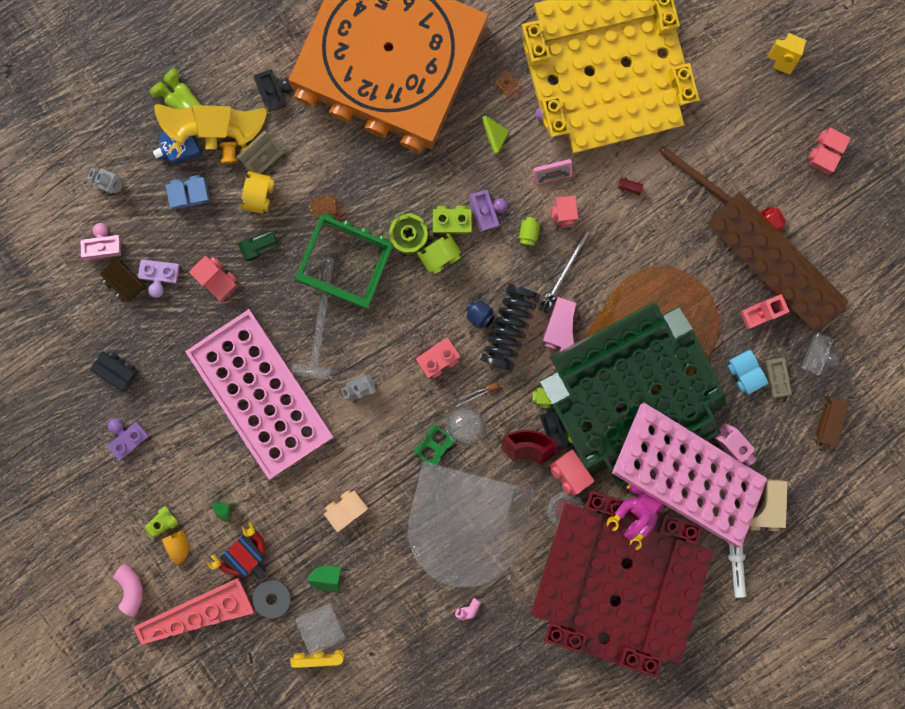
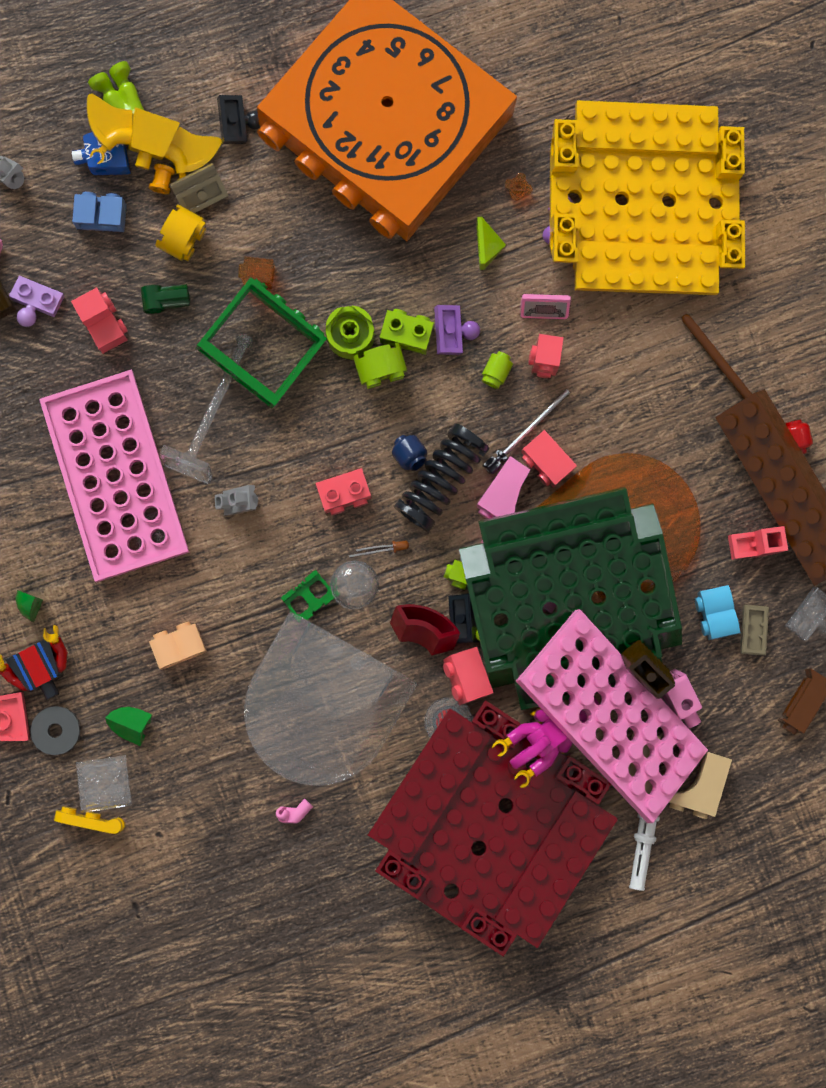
camera: 10 degrees right, 5 degrees down
(587, 290) = (548, 459): none -> coral brick
(630, 186) = (634, 349): dark red pin -> none
(707, 433) = (648, 669): none -> dark brown brick

